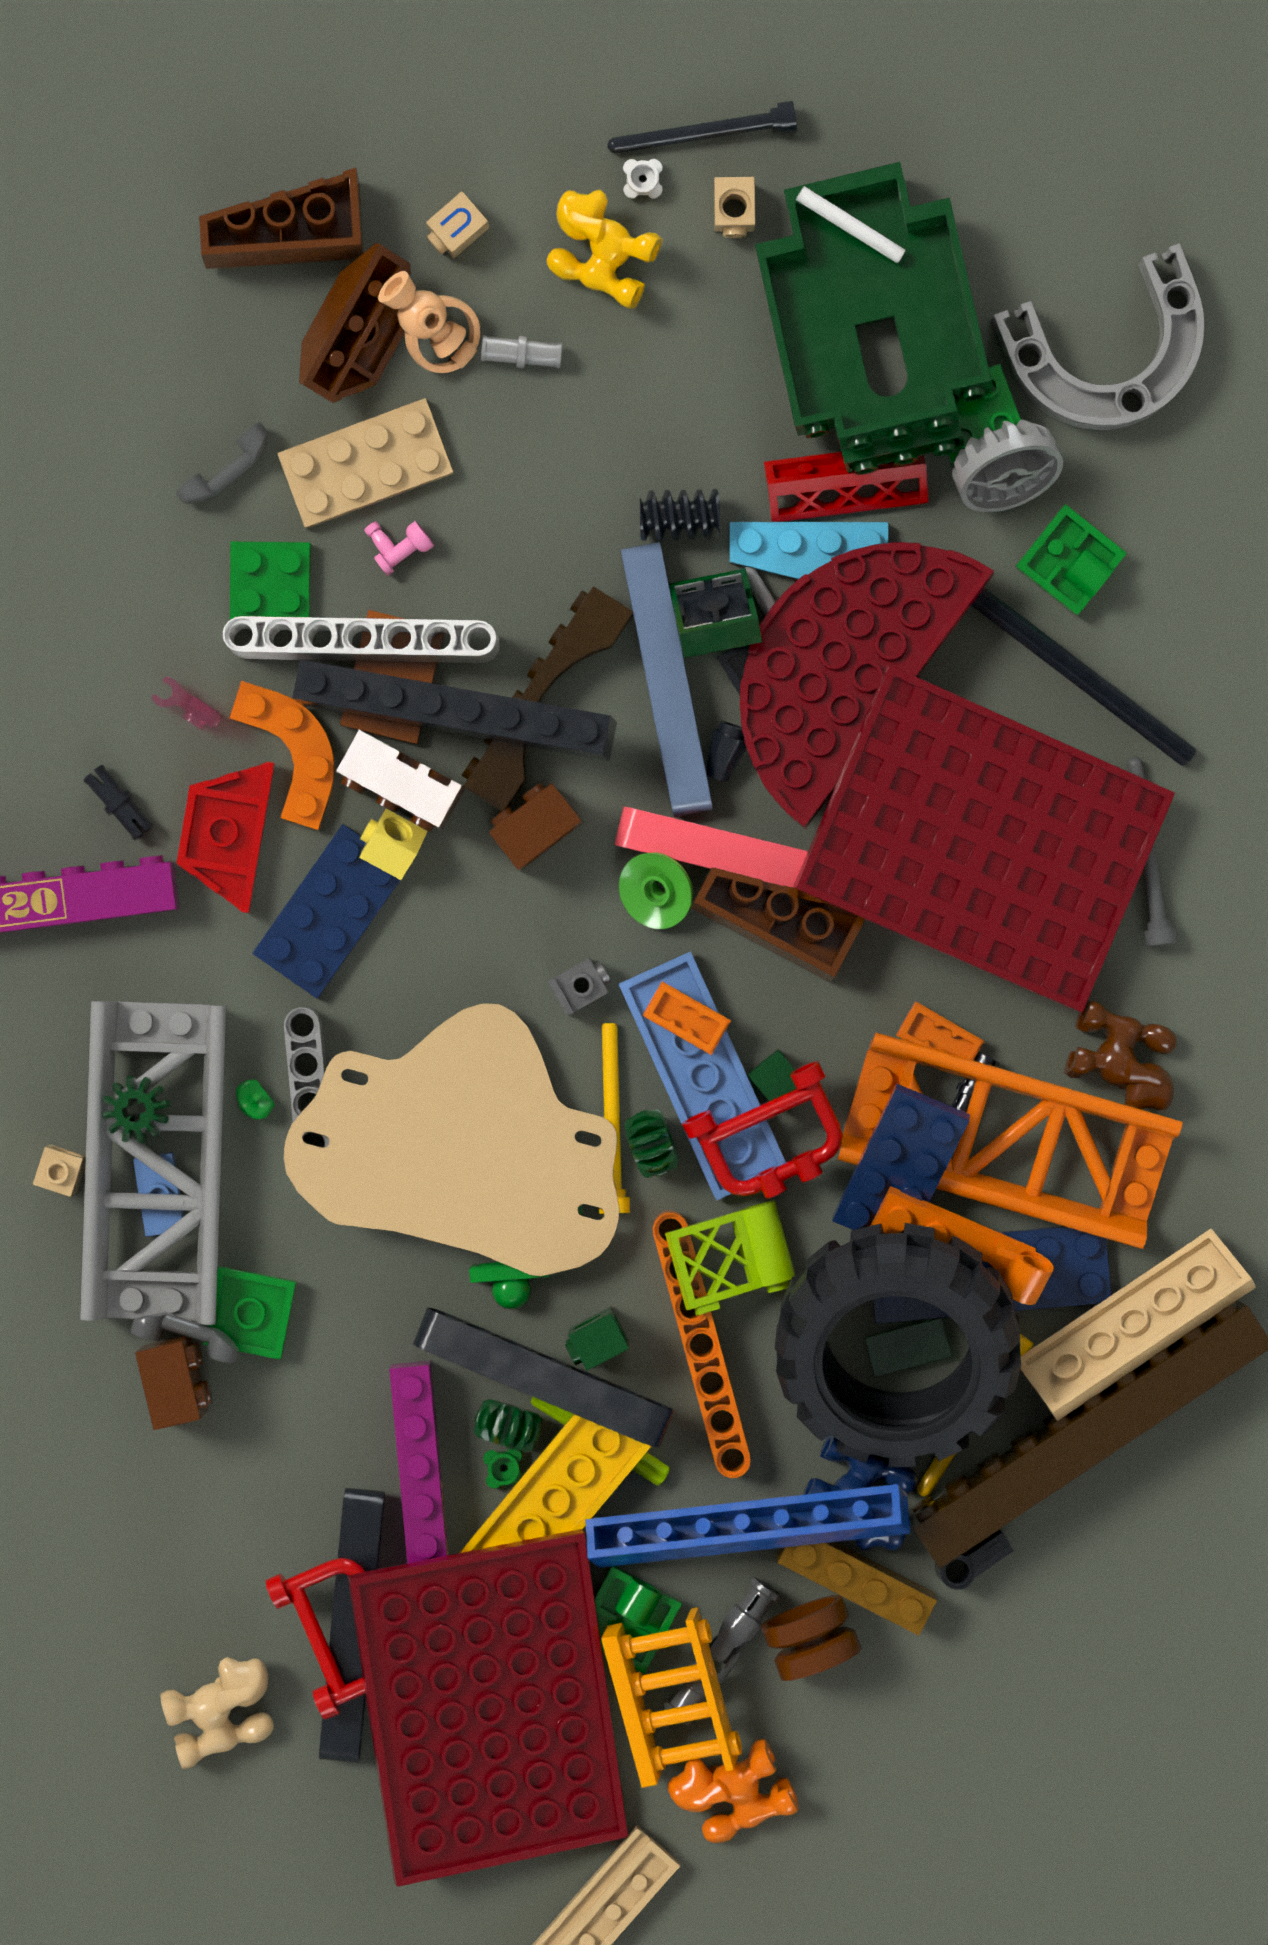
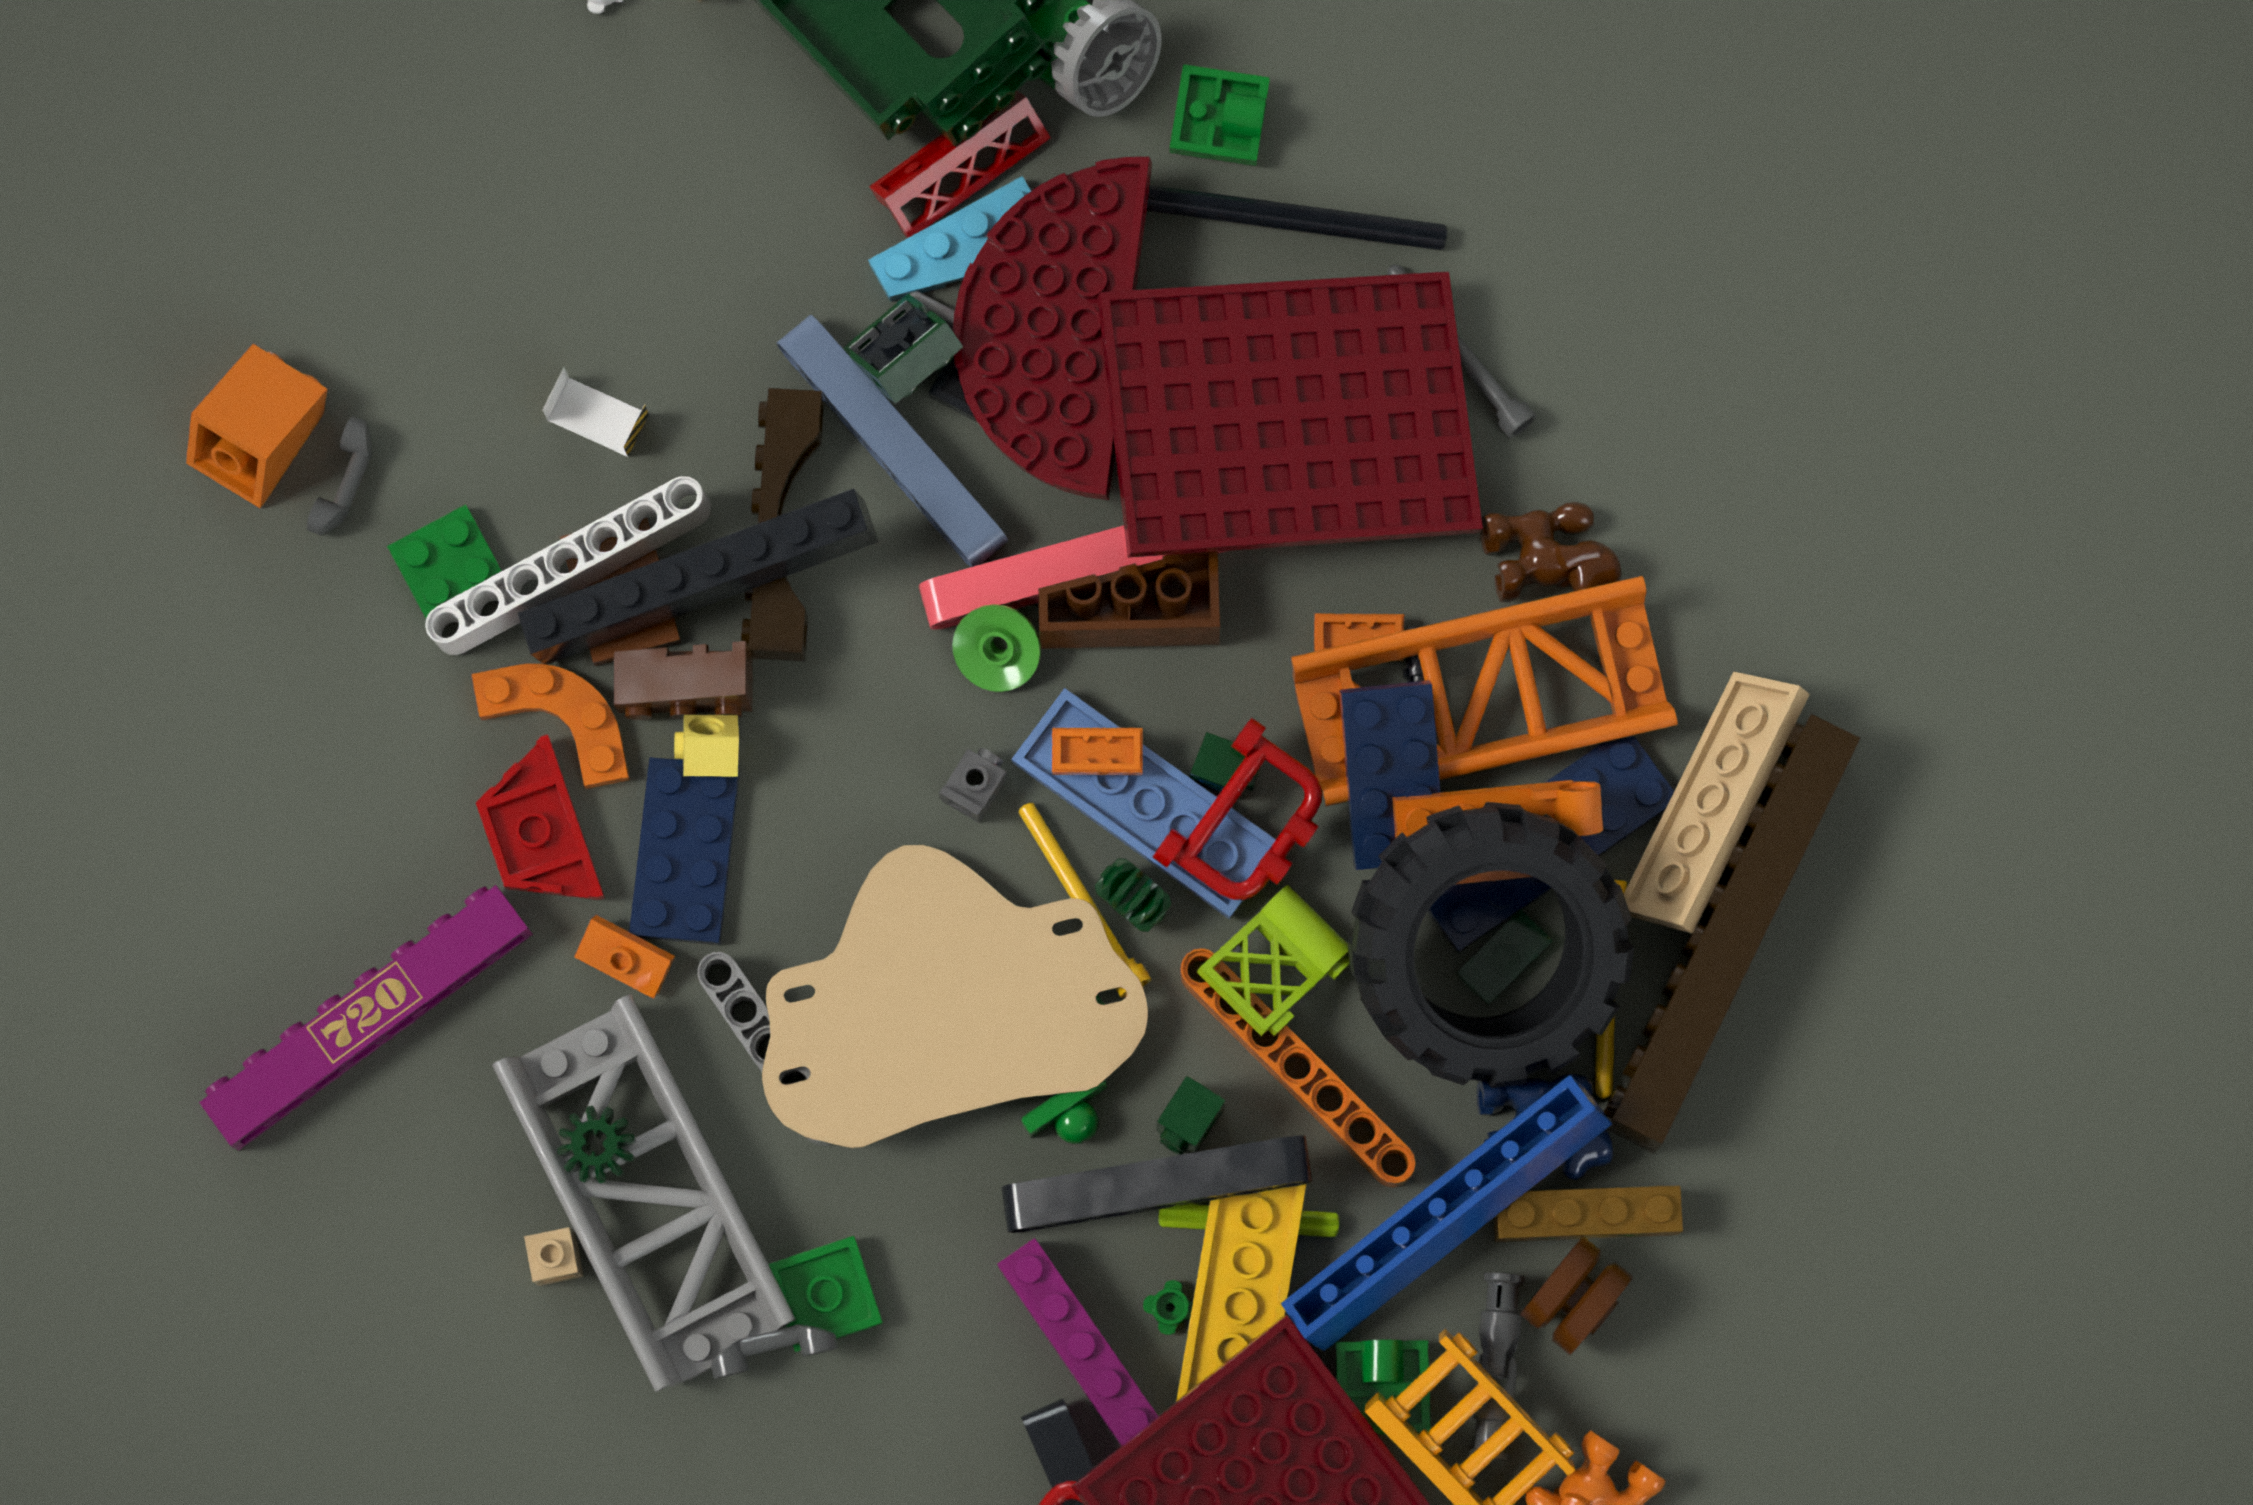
camera: 25 degrees left, 10 degrees down
(118, 802) = (413, 861): black pin -> none
(150, 1182) = (648, 1217): medium blue plate -> none
(173, 1381) = (784, 1402): reddish brown brick -> none
(180, 386) = (254, 424): none -> orange slope
(196, 711) = (441, 725): clear pink plate -> none
(239, 969) = (624, 956): none -> orange plate
(253, 1100) = (711, 1079): green piece -> none
(288, 227) = (279, 215): reddish brown wedge -> none
(353, 329) = (399, 268): reddish brown wedge -> none
(365, 463) = (479, 400): tan plate -> none
(392, 555) = (554, 472): bright pink piece -> none
(424, 317) = (459, 224): light nougat piece -> none
(449, 525) = (594, 414): none -> white sticker
(456, 226) = (444, 127): tan brick -> none
(507, 1425) = (1149, 1257): dark green gear -> none
(521, 351) = (573, 211): light grey pin -> none
(534, 826) = (840, 648): reddish brown brick -> none
(611, 246) = (605, 62): yellow animal -> none
(679, 514) = (815, 277): black piece -> none
(725, 750) = (989, 477): black cone -> none
(977, 1560) = (1693, 1125): black piece -> none

